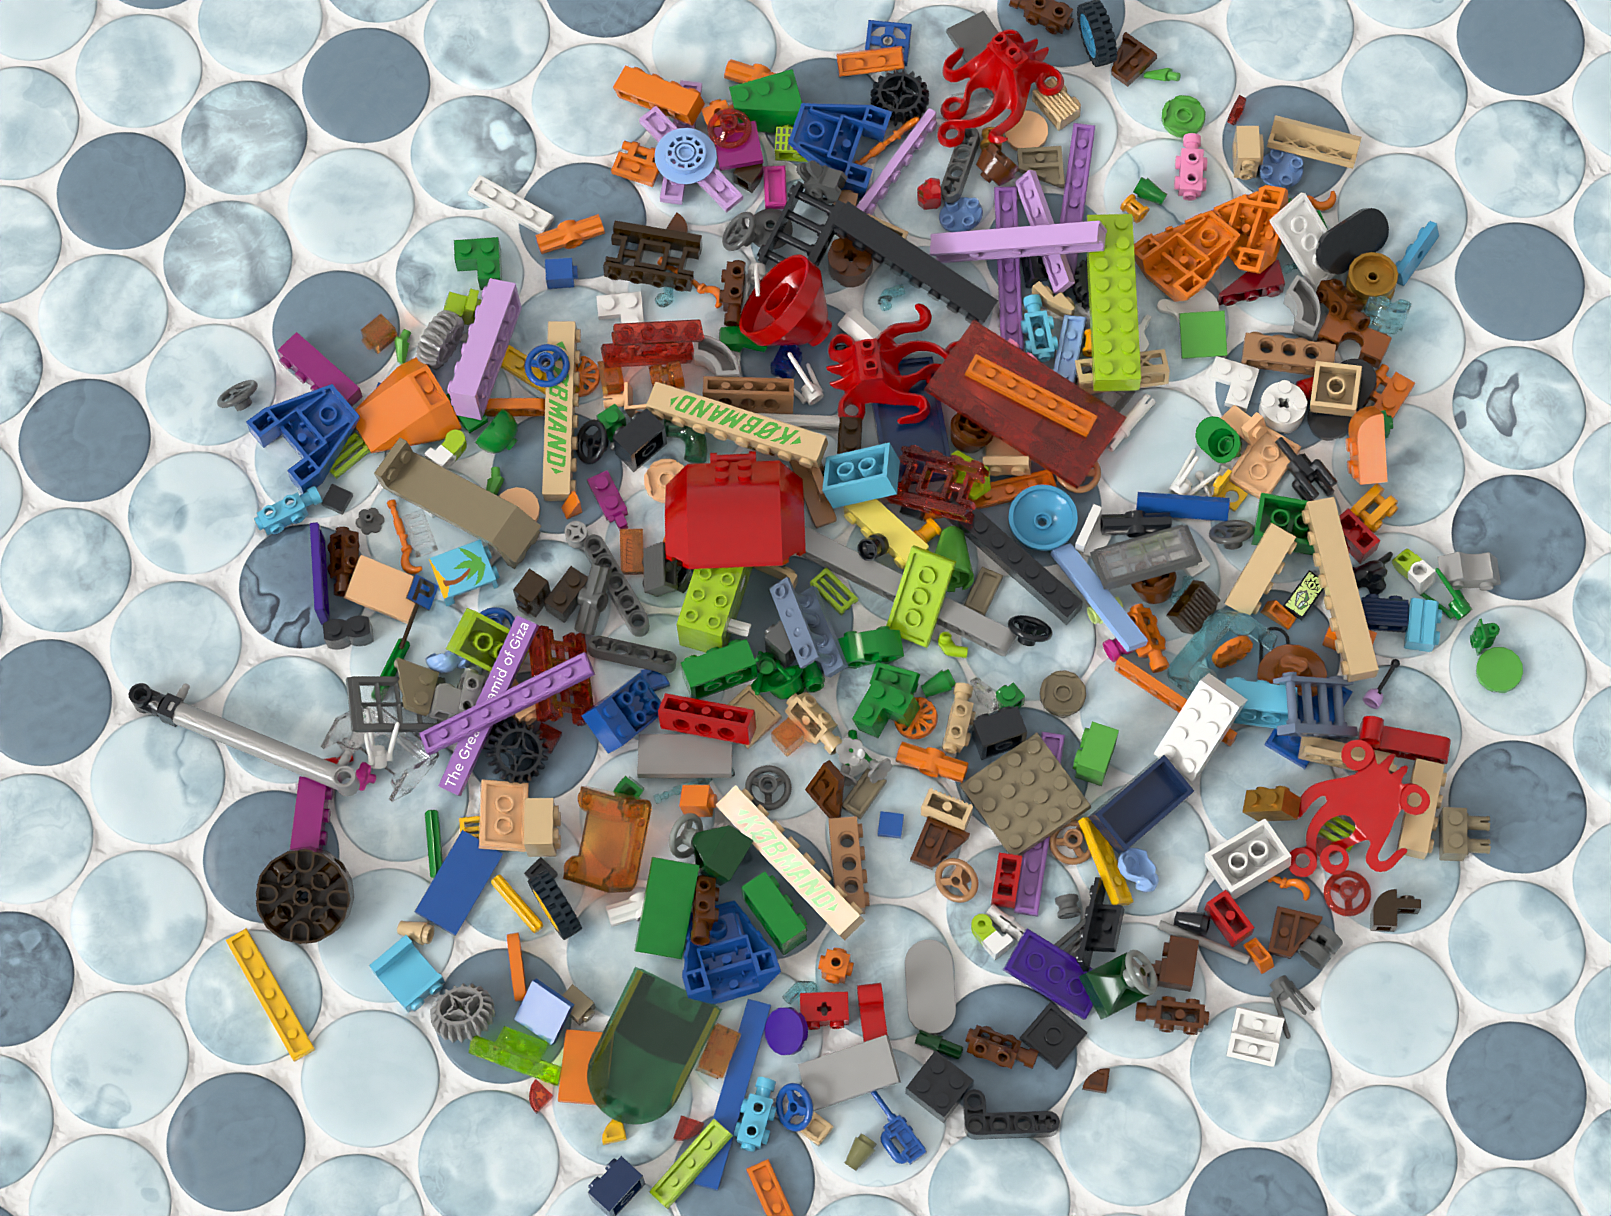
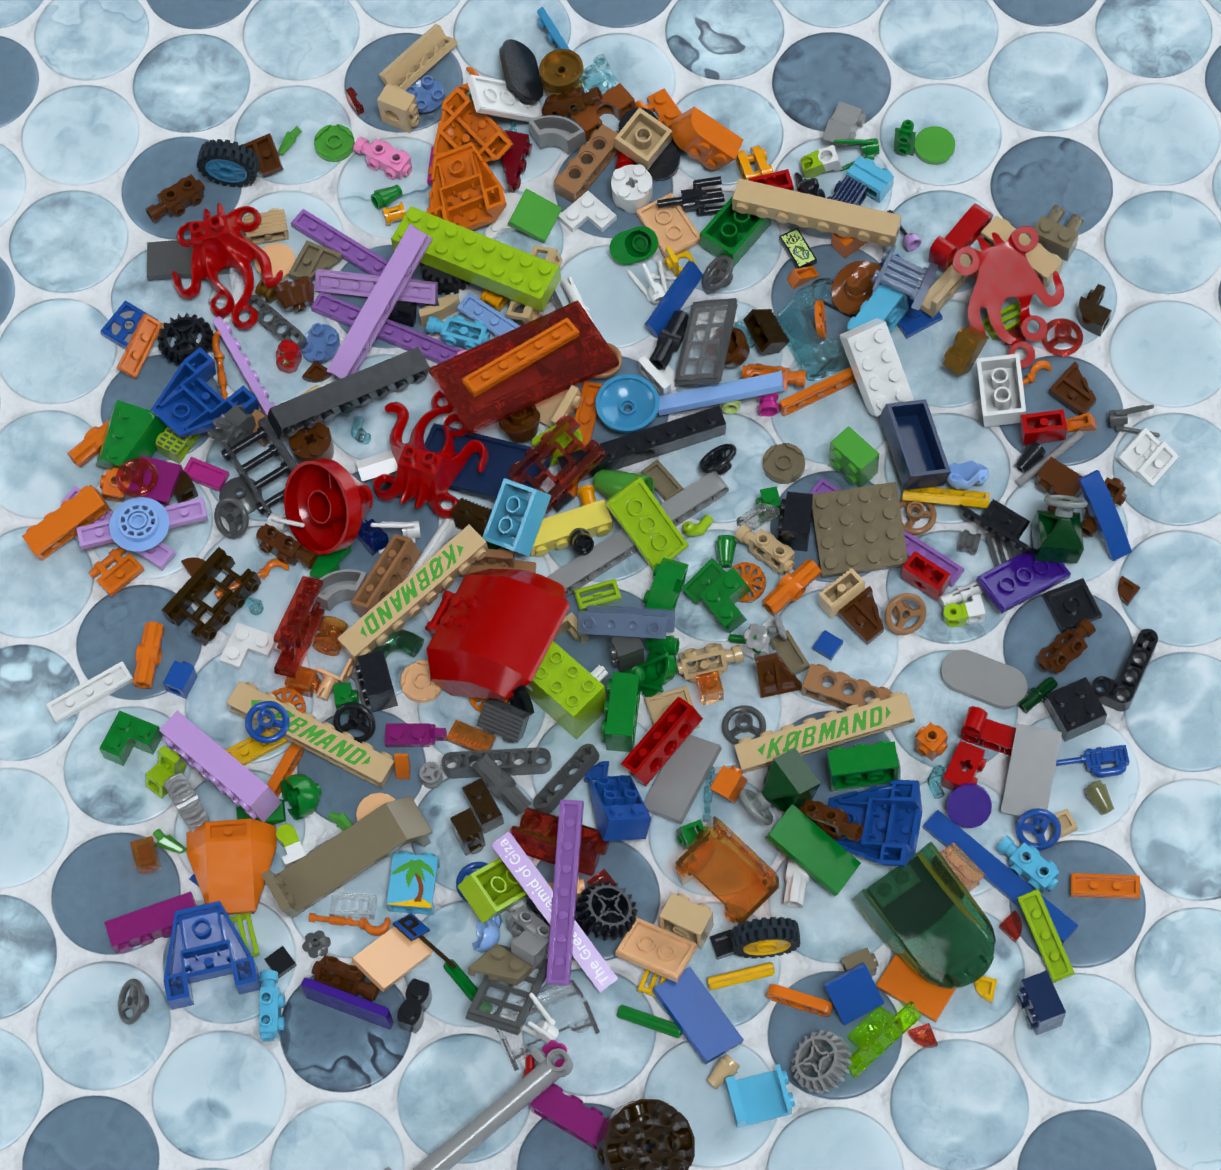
camera: 60 degrees left, 5 degrees down
(929, 226) = (316, 373): none -> reddish brown tile
(1157, 1020) = (1105, 515): none -> blue slope
(1247, 427) = (637, 218): light nougat bracket -> none
(1260, 570) = (764, 264): tan brick -> none
(1320, 946) = (1098, 374): dark grey wheel -> none

